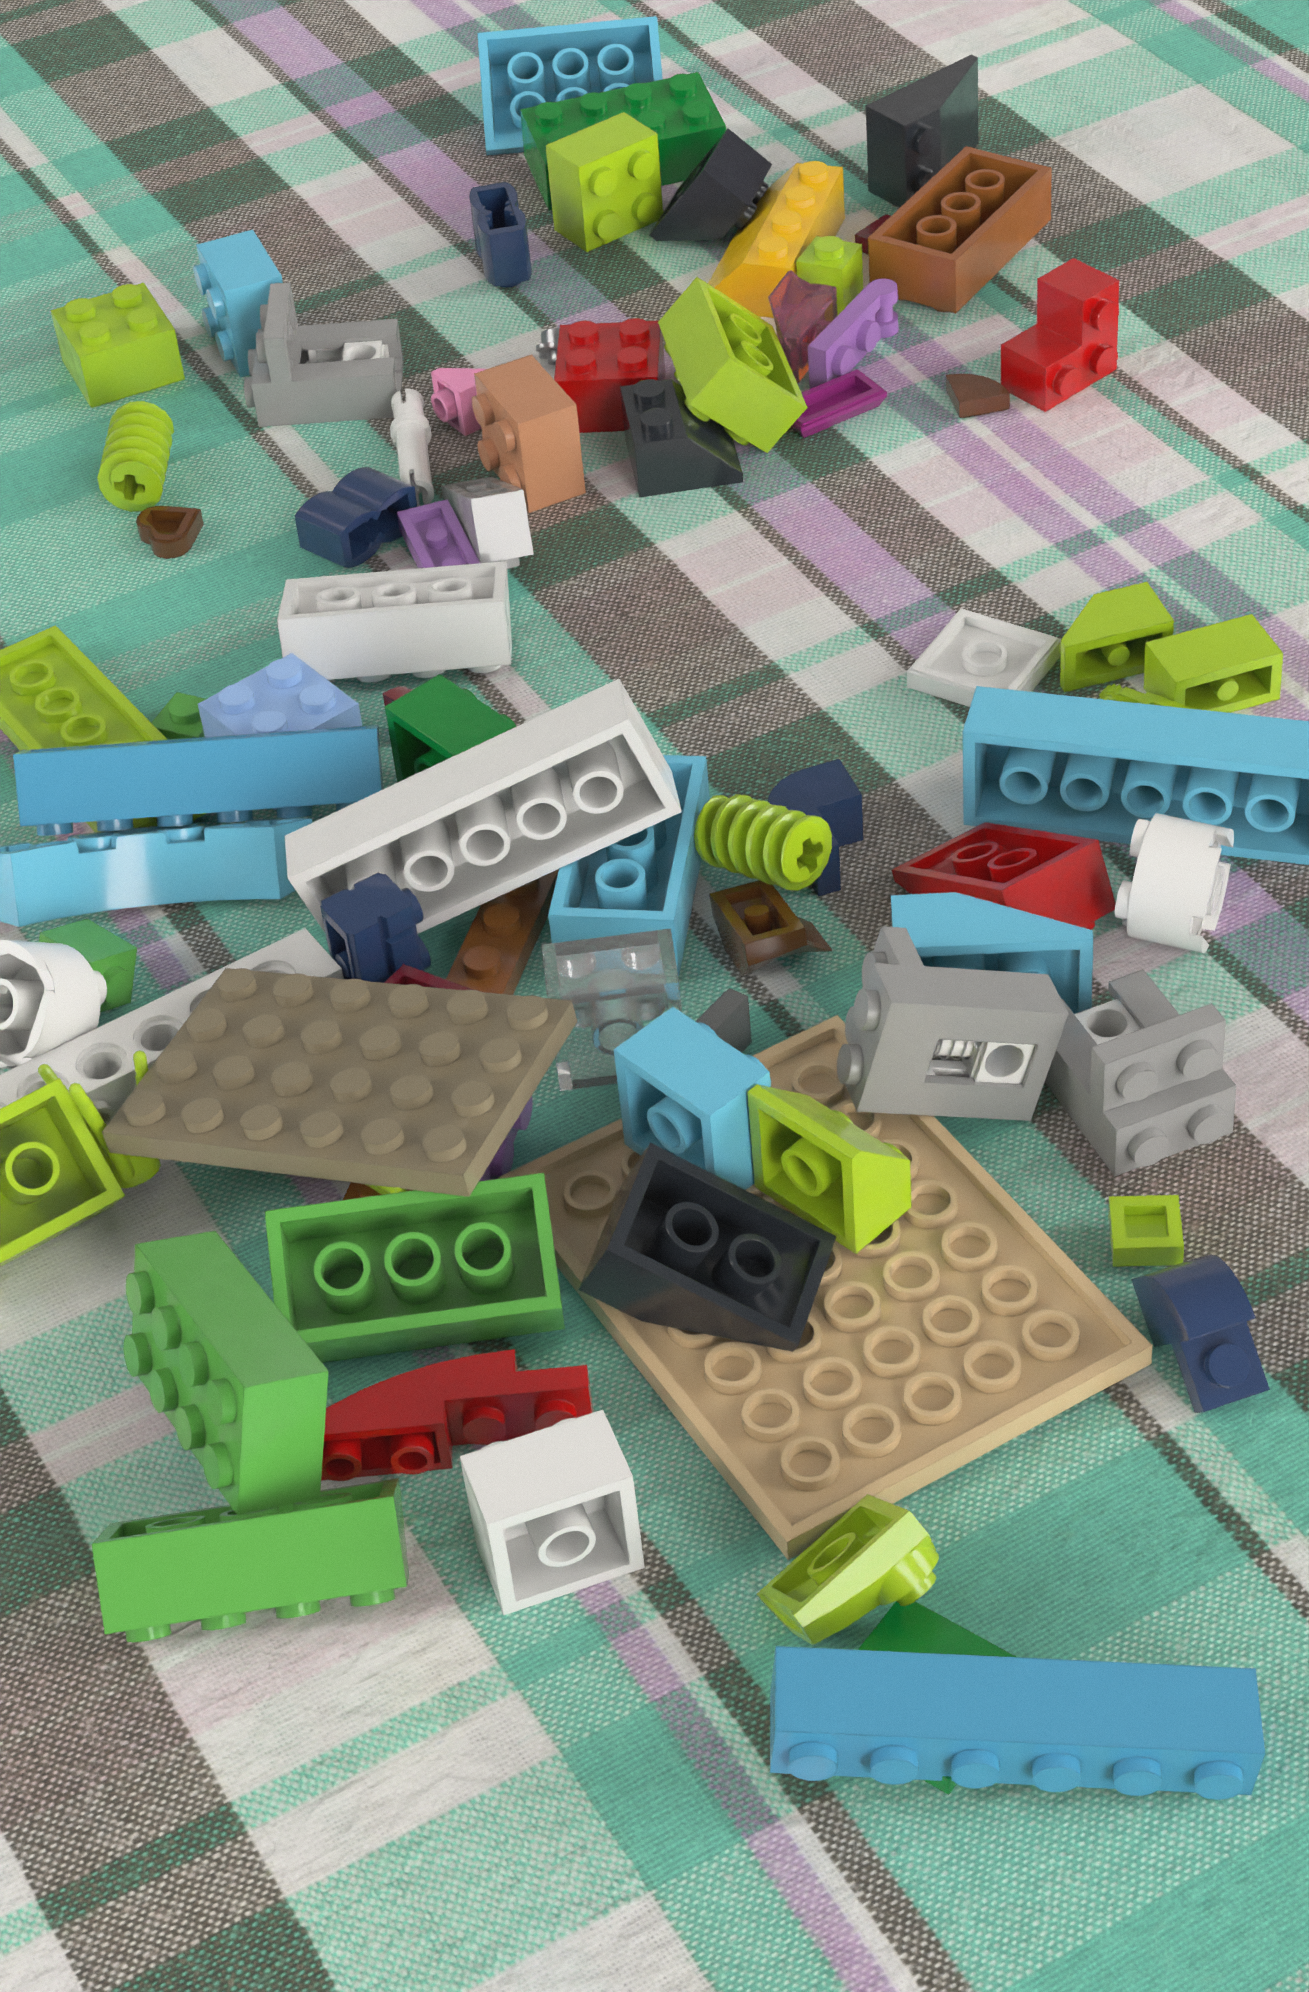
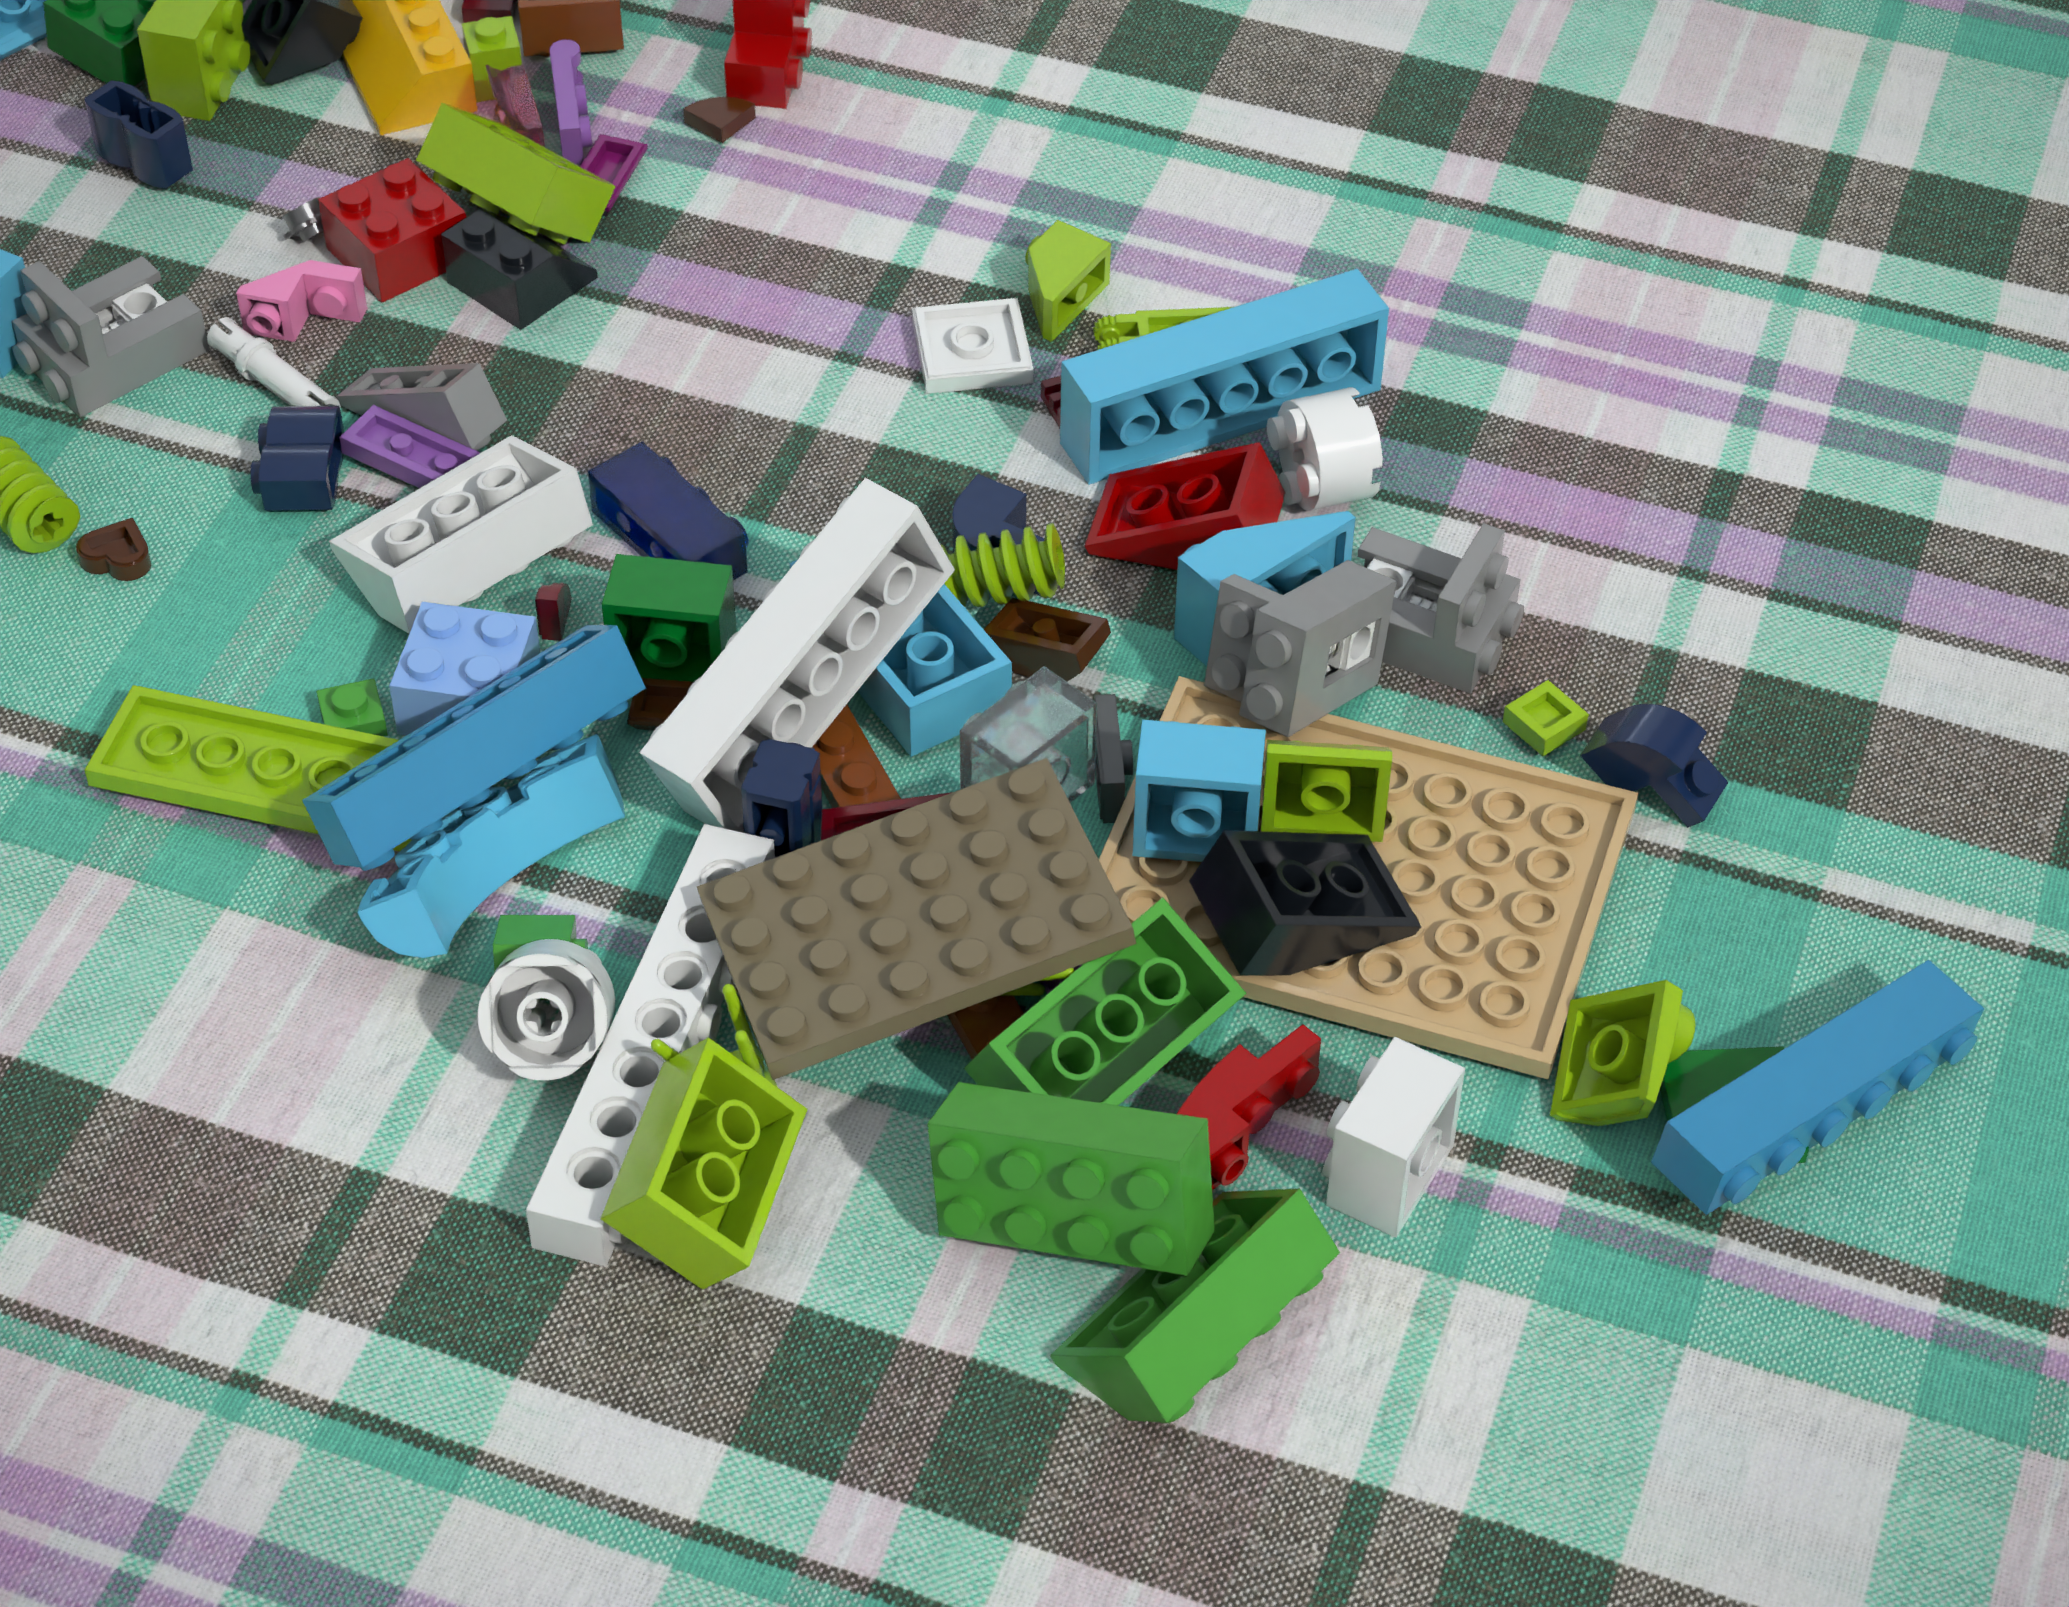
camera: 45 degrees left, 5 degrees up
(529, 432) = (397, 307): nougat brick -> none
(566, 659) = (663, 513): none -> clear blue brick
(1216, 666) = (1162, 267): lime brick -> none

